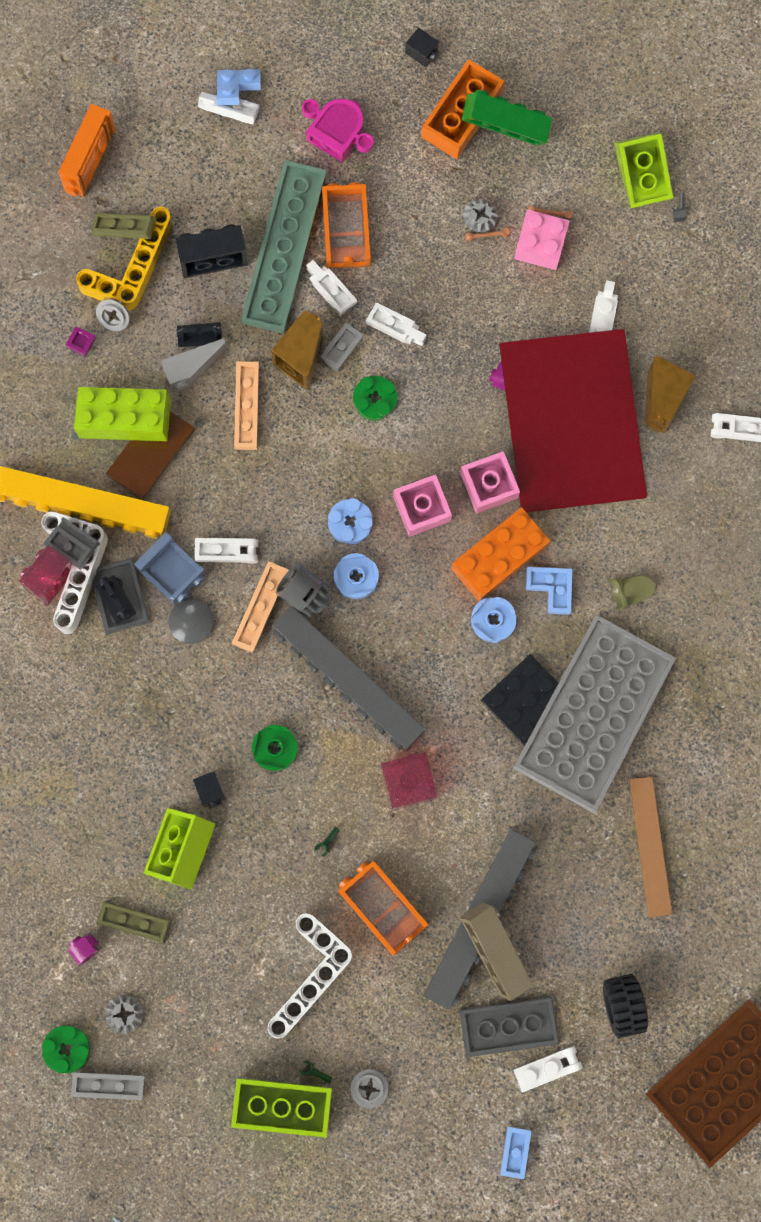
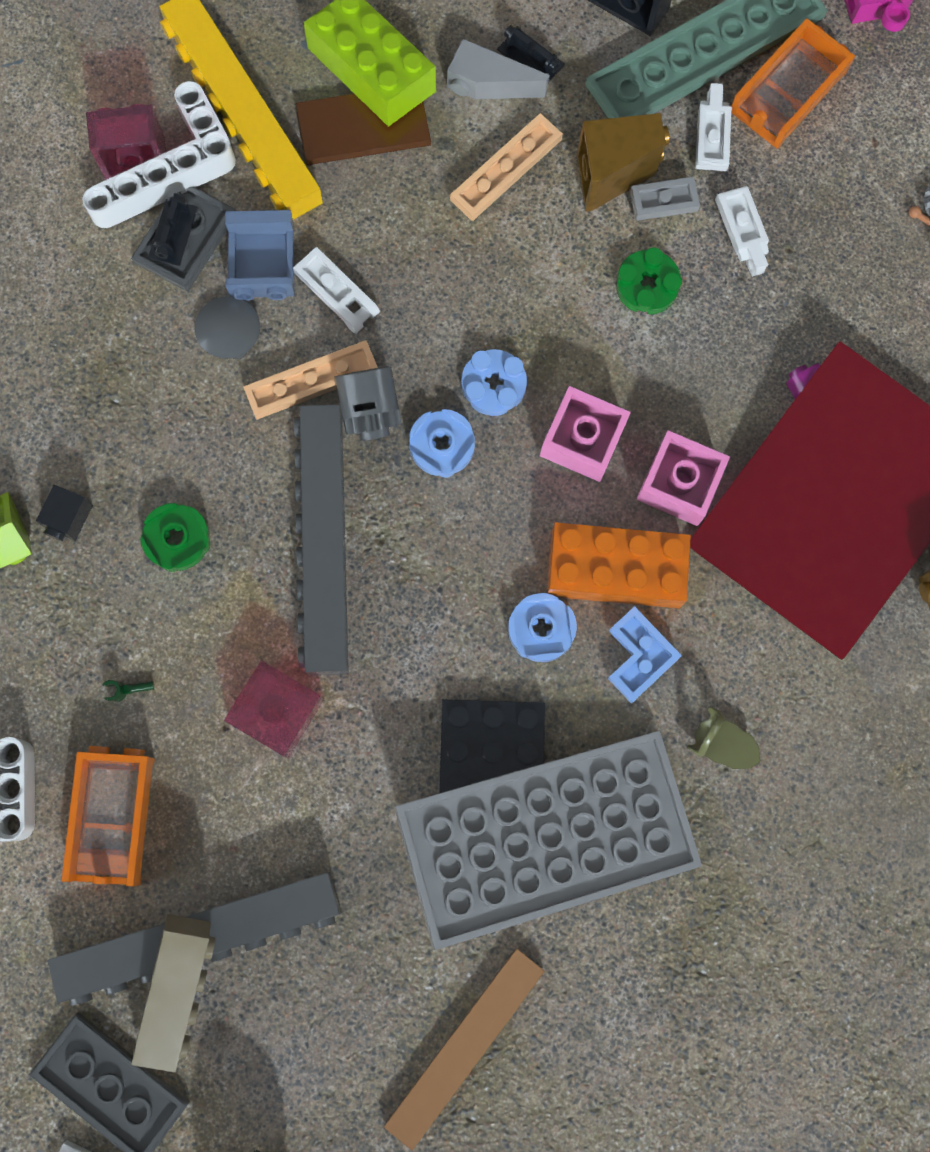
camera: 45 degrees right, 0 degrees up
(72, 543) = (181, 130): dark grey plate -> none

